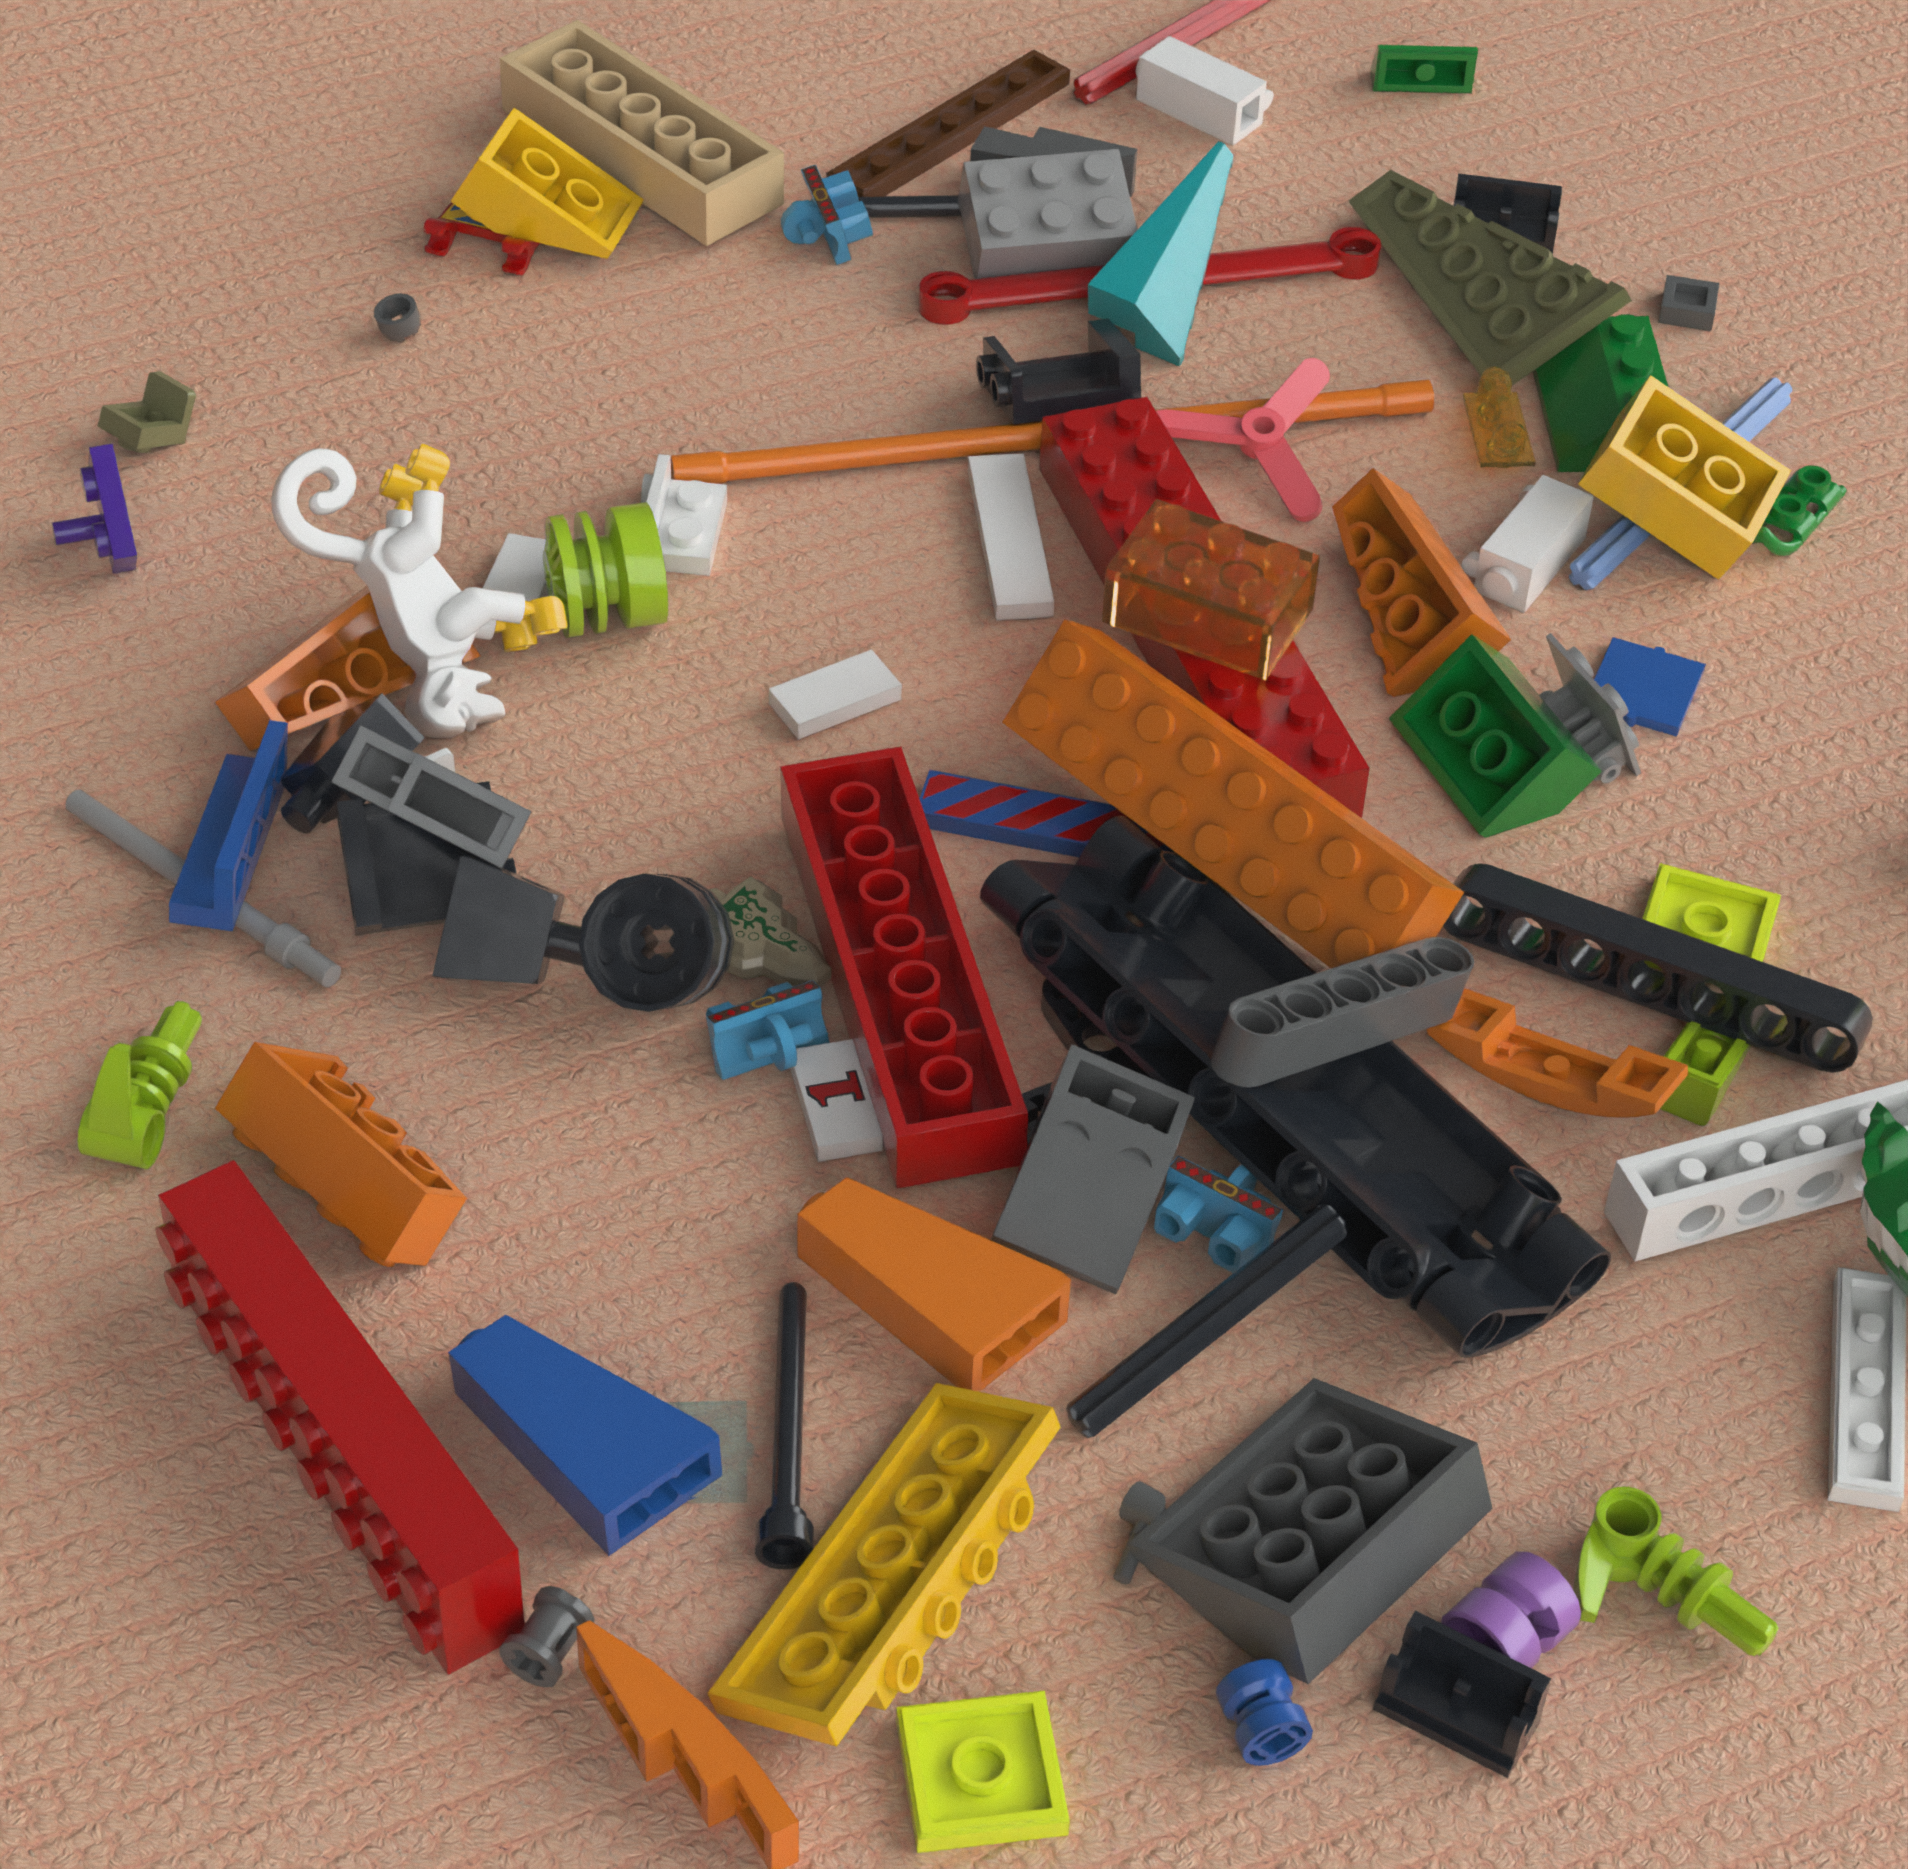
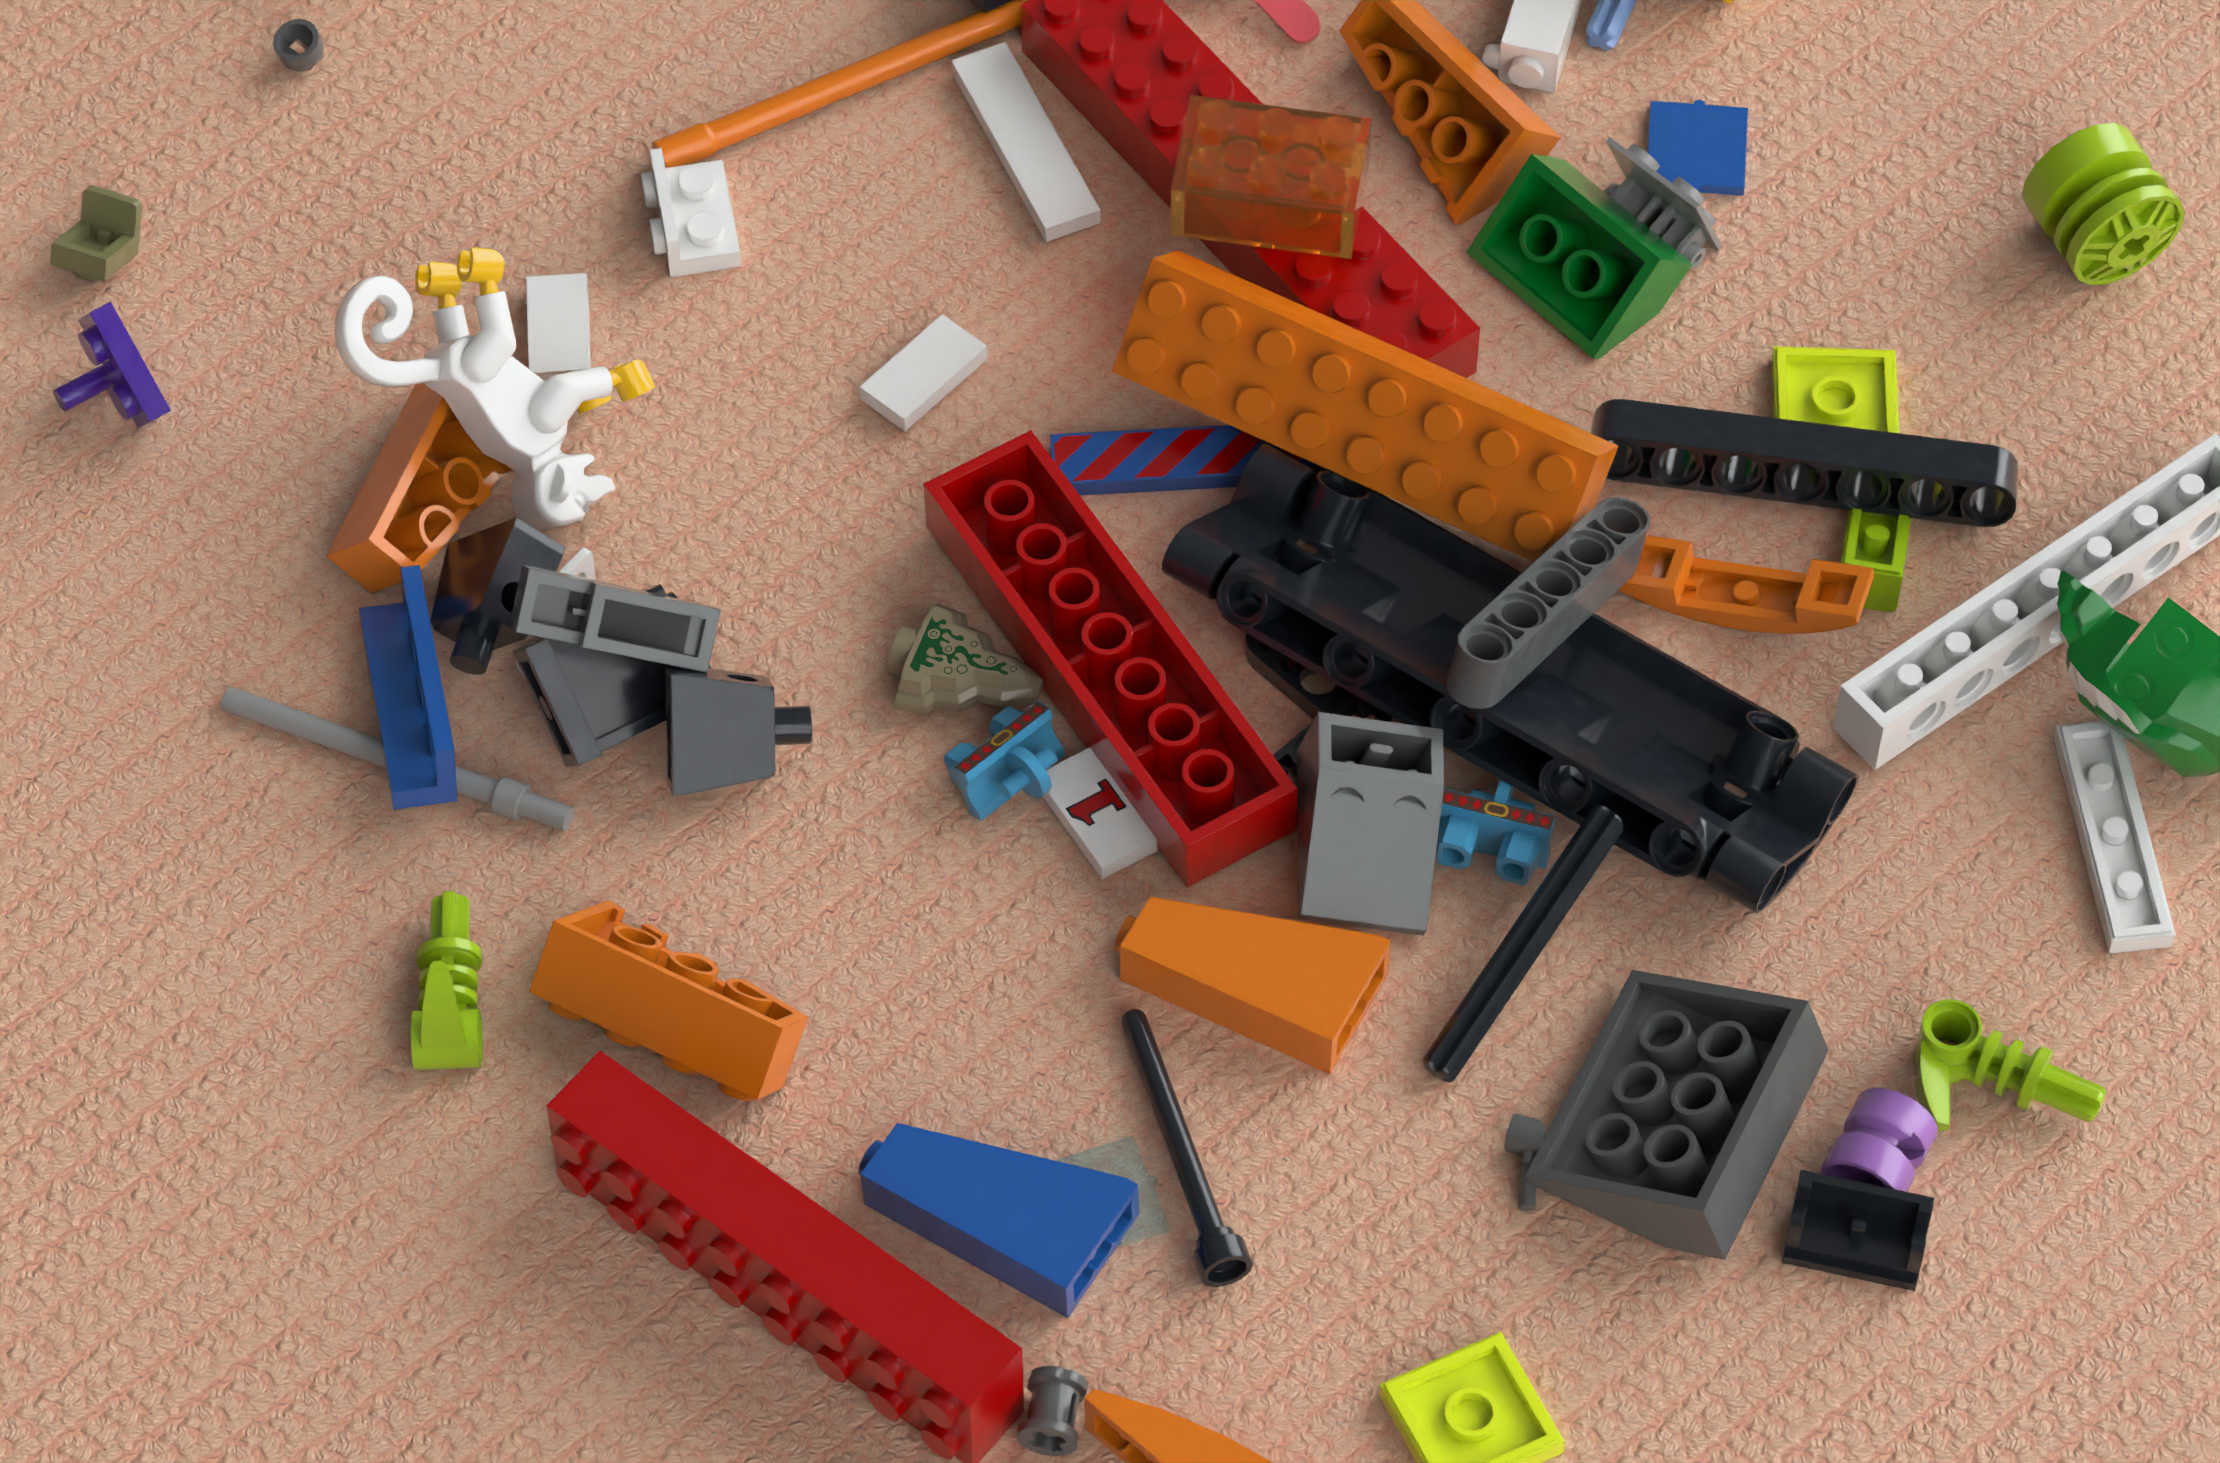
camera: 15 degrees left, 10 degrees up
(607, 569) = (657, 300): lime wheel -> none
(620, 942) = (894, 740): black wheel -> none
(891, 1567) = (1330, 1256): yellow plate -> none
(1262, 1707) = (1696, 1296): blue wheel -> none

